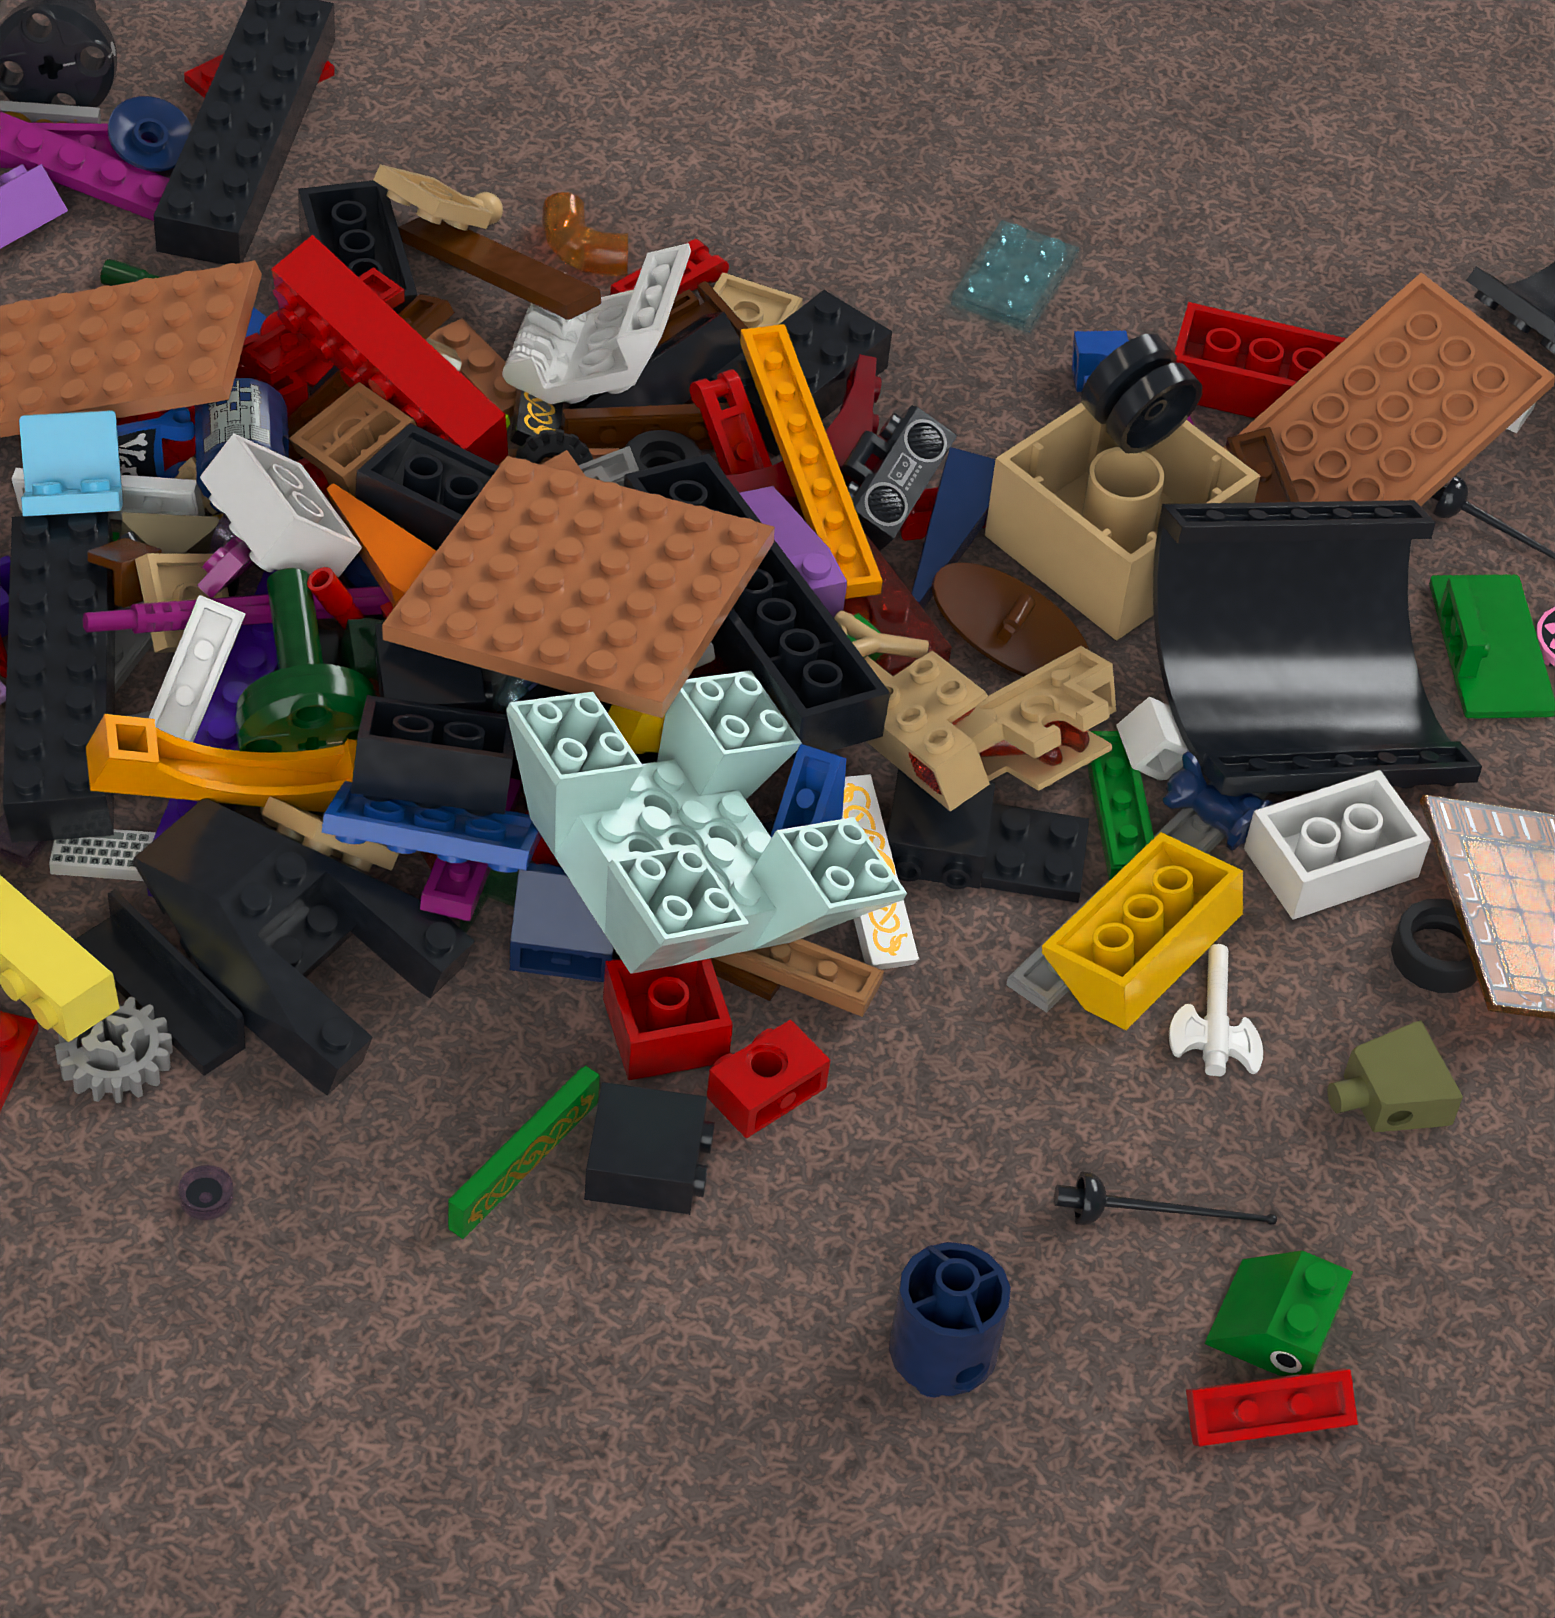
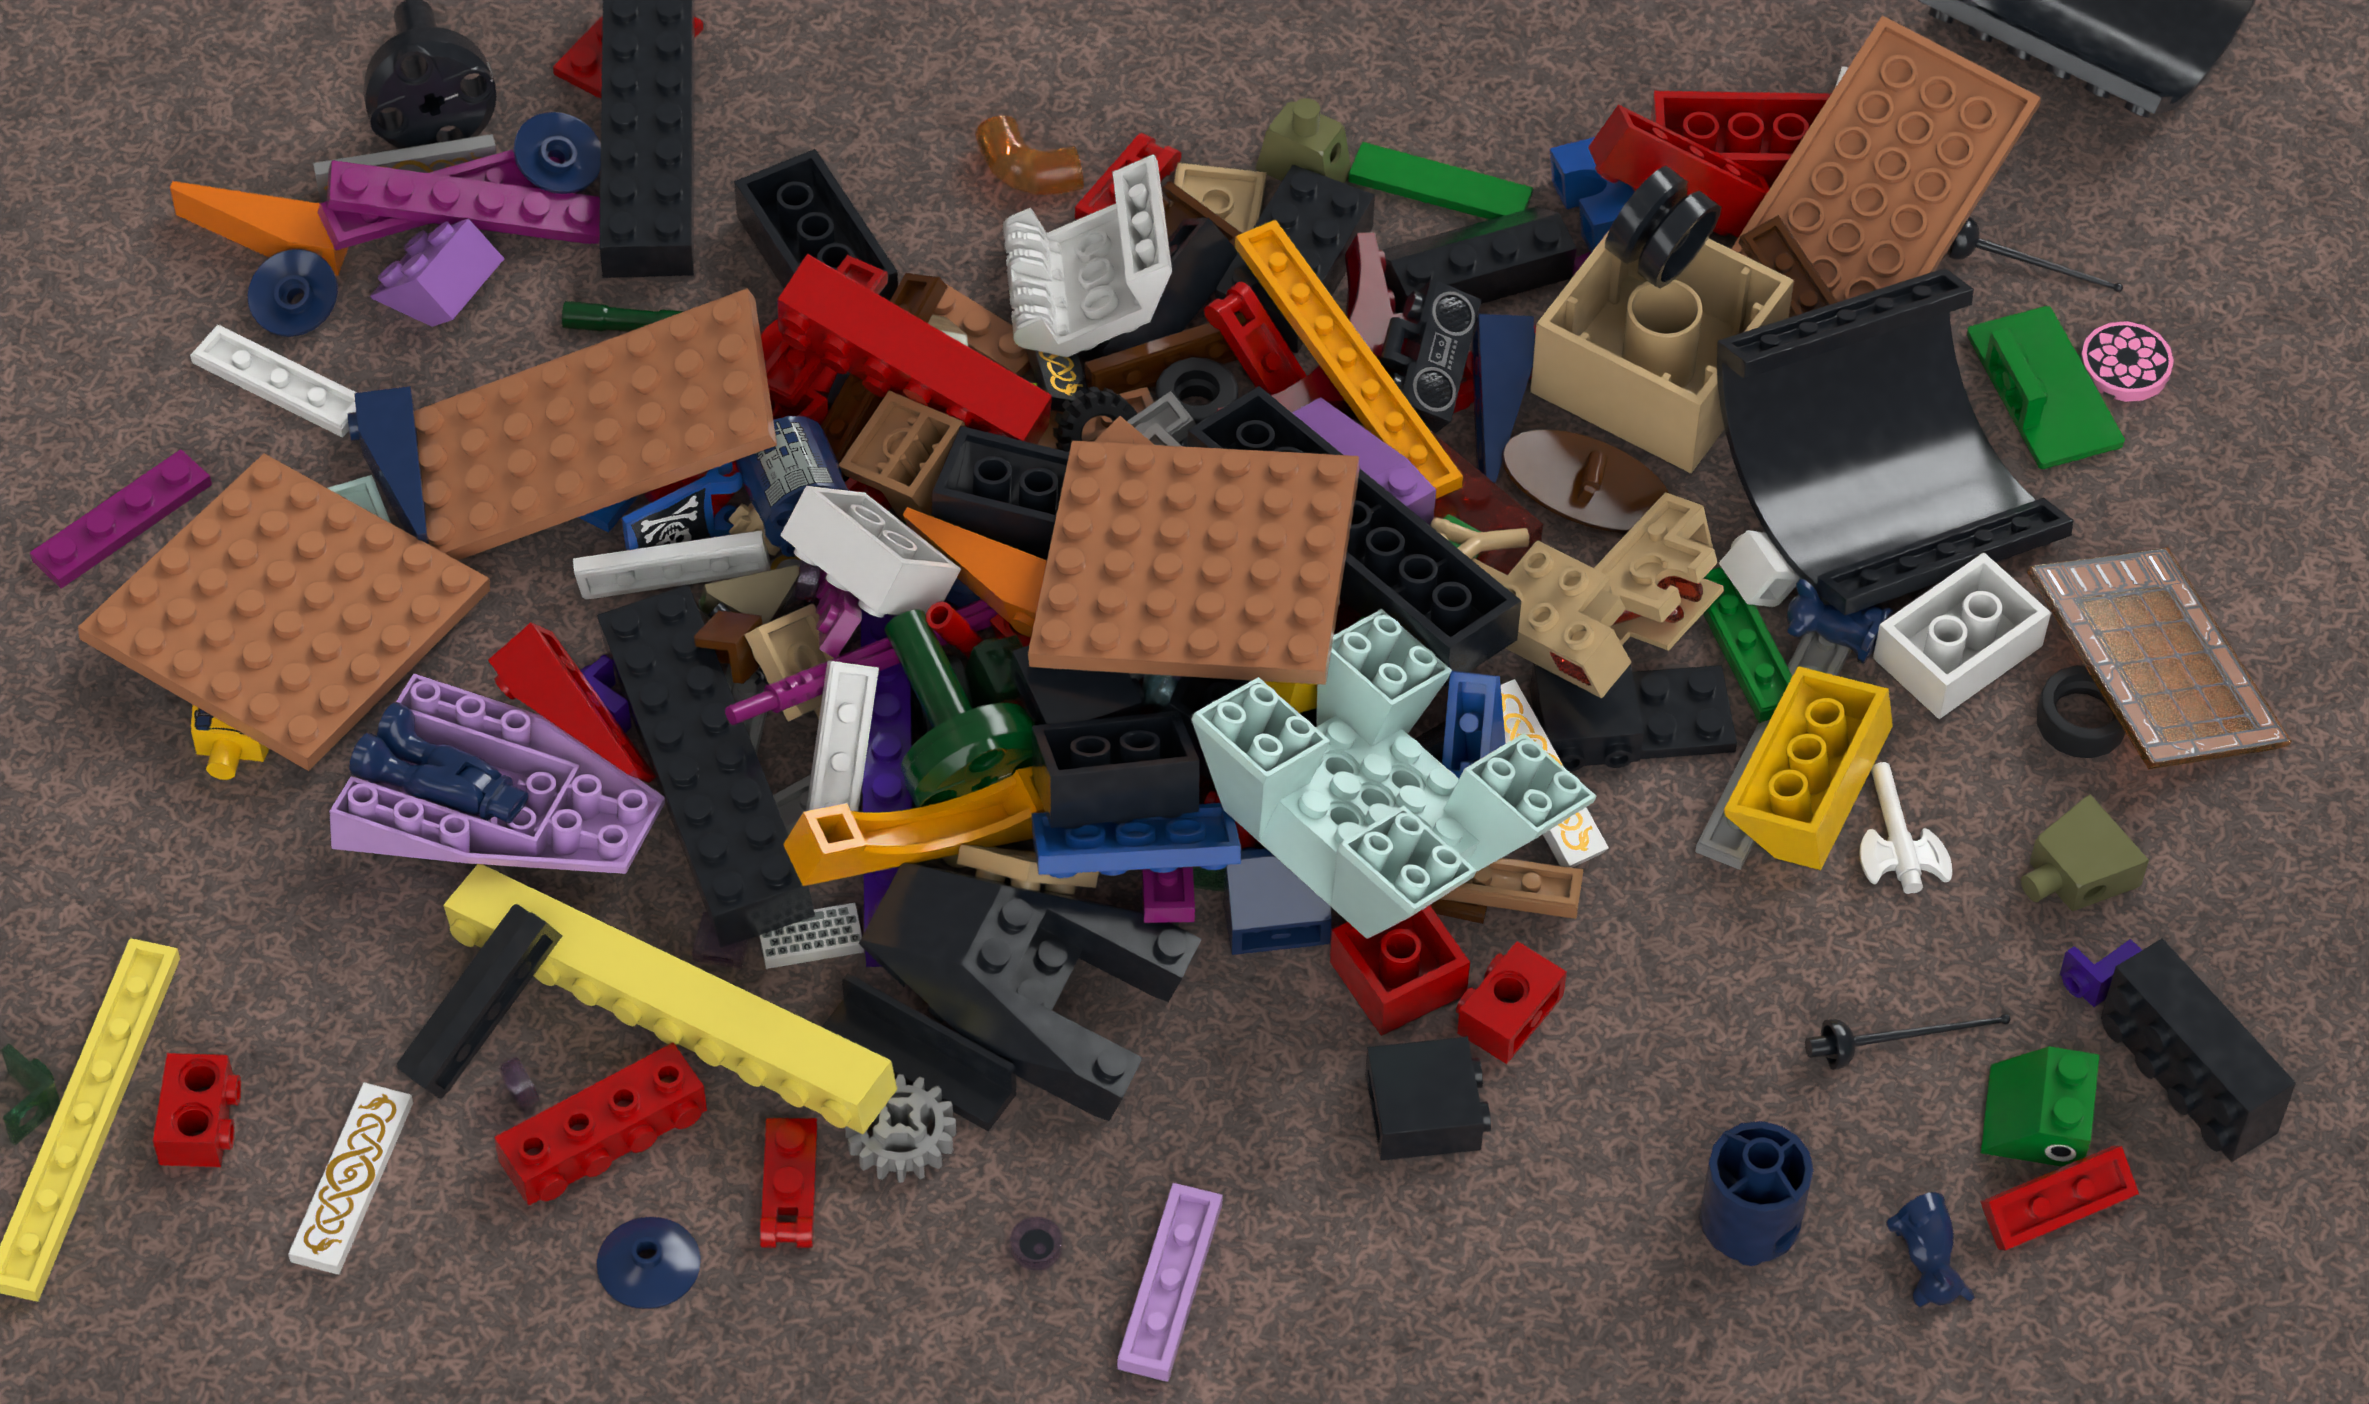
camera: 10 degrees left, 5 degrees up
(70, 463) = (639, 549): medium azure bracket -> none
(323, 1263) = (1170, 1282): none -> lavender plate
(438, 200) = (876, 158): tan plate -> none
(502, 267) = (963, 216): reddish brown tile -> none
(523, 1152) = (1313, 1130): green tile -> none
(846, 273) = (1306, 140): none -> olive torso
(964, 345) = (1437, 183): none -> green tile
(982, 414) = (1486, 257): none -> black slope
(1015, 276) = (1466, 94): clear light blue plate -> none
(1120, 1414) = (1930, 1239): none -> dark blue animal
(1227, 398) = (1635, 147): none -> red brick
(1391, 1200) = (2091, 980): none -> dark purple bracket
(1458, 1294) = (2196, 1051): none -> black brick

